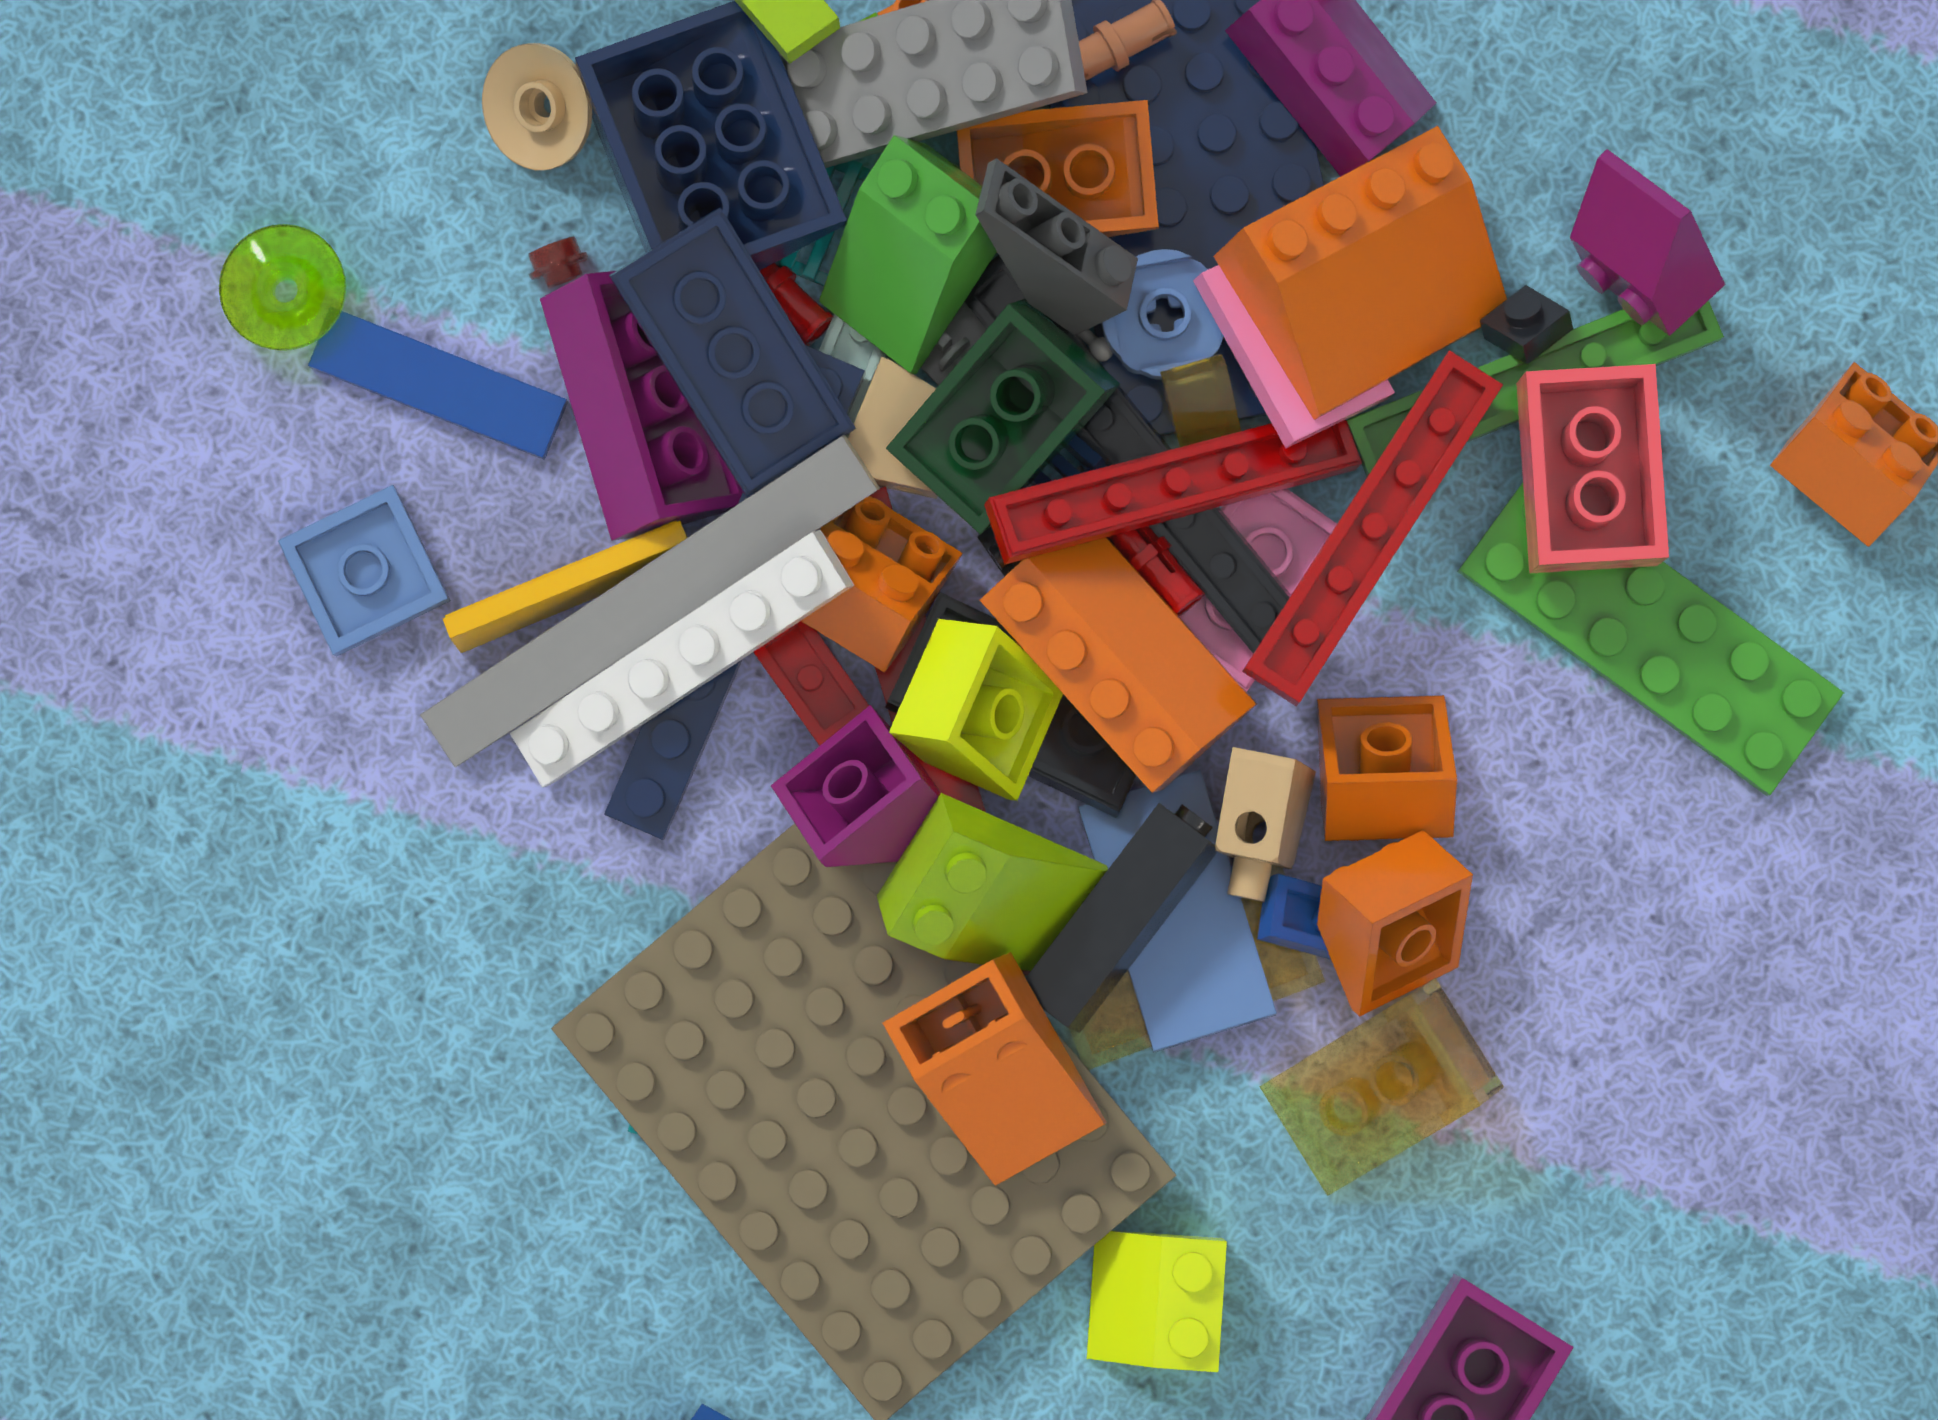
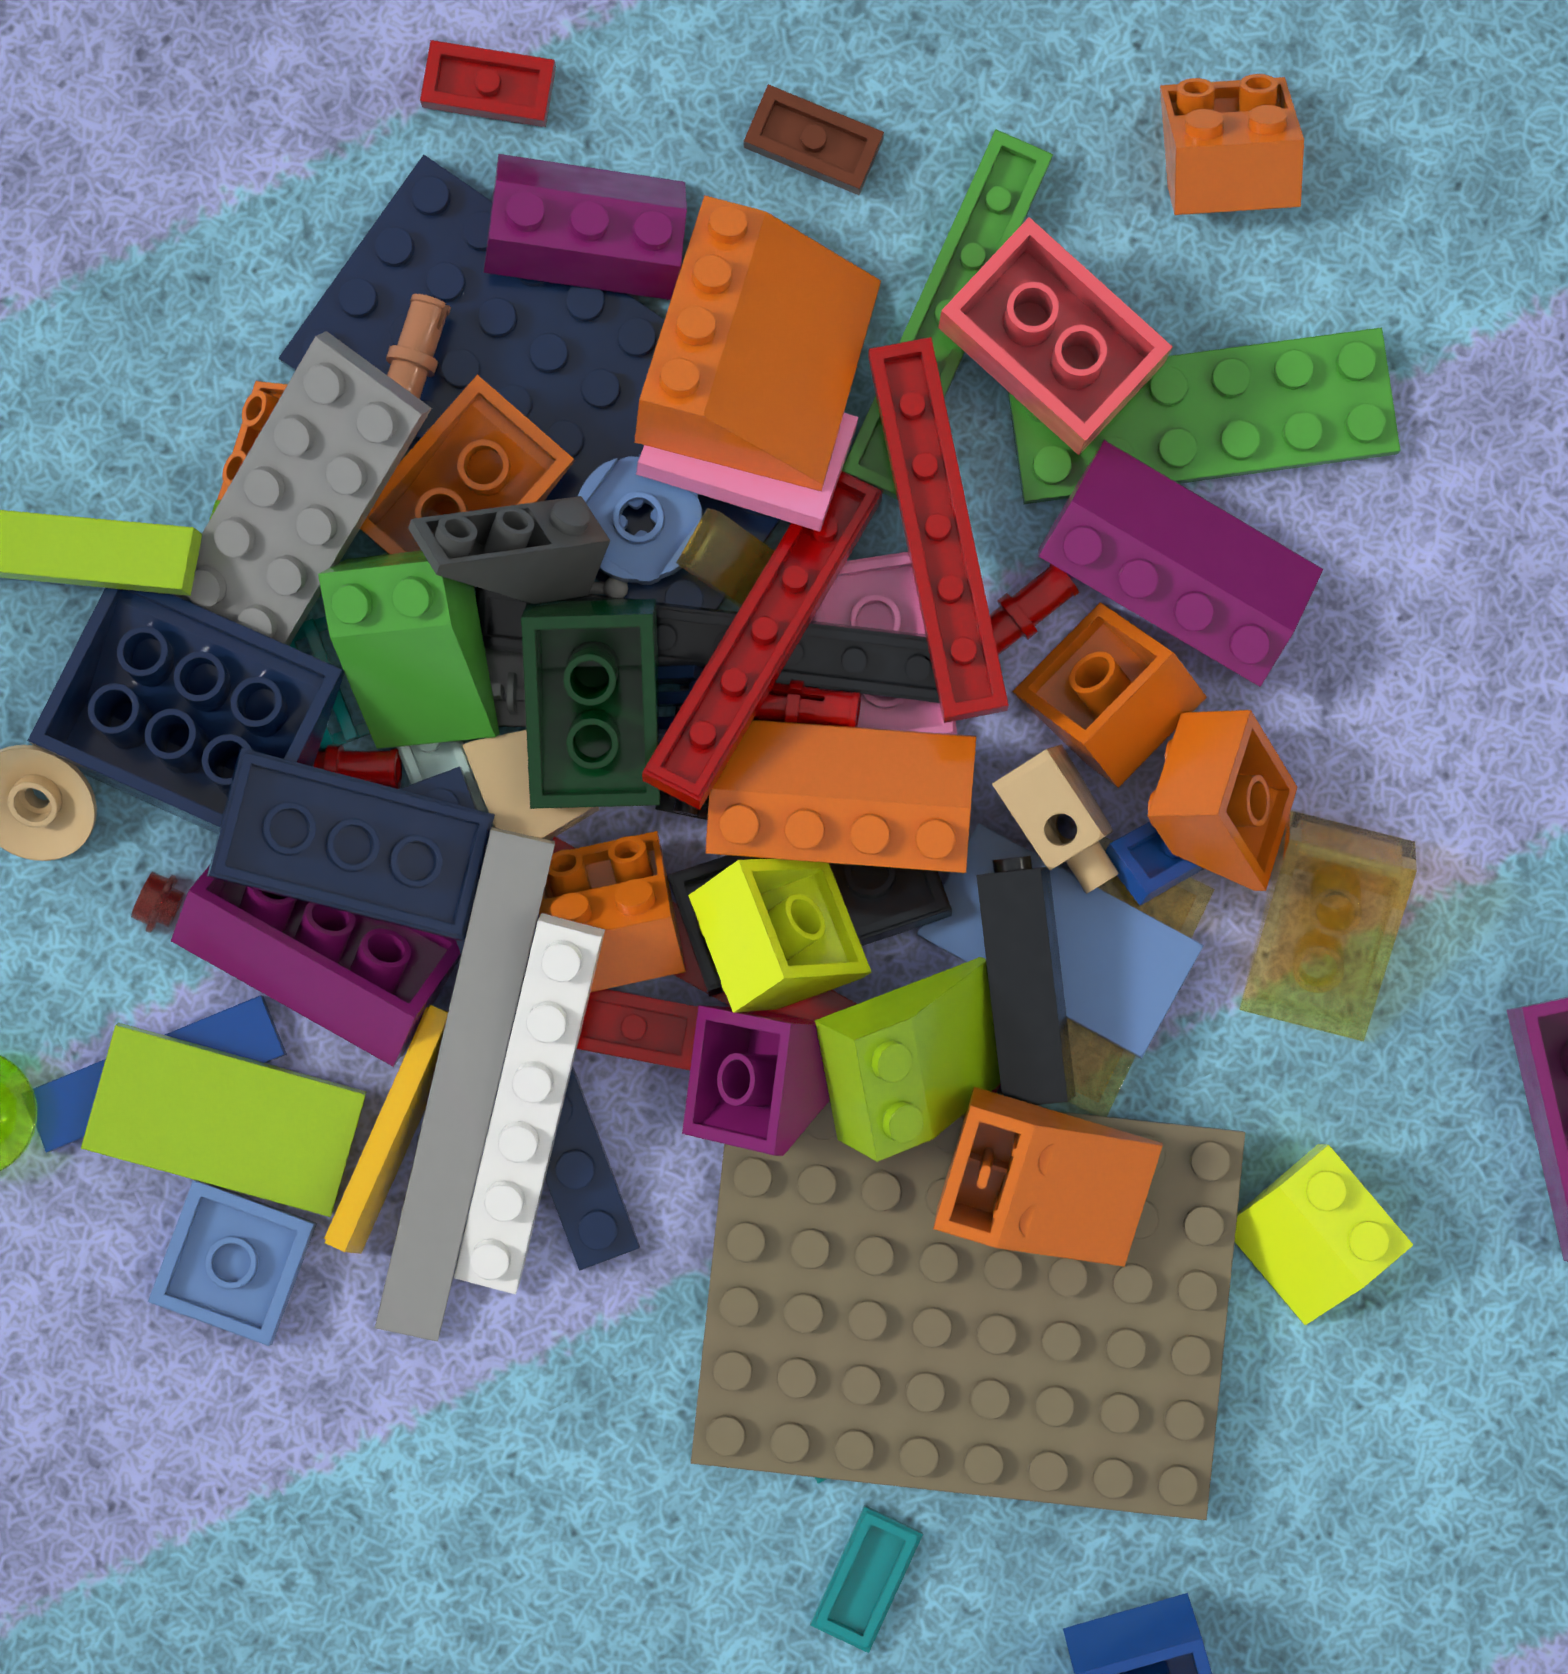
camera: 45 degrees left, 0 degrees up
(455, 462) = (223, 1119): none -> lime tile
(596, 1232) = (866, 1579): none -> teal tile
(1386, 649) = (1029, 606): none -> red pin
(1526, 324) = (904, 279): black plate -> none
(1528, 722) = (1181, 563): none -> magenta slope
(1553, 155) = (813, 139): none -> copper plate
(1642, 247) = (935, 142): magenta slope -> none

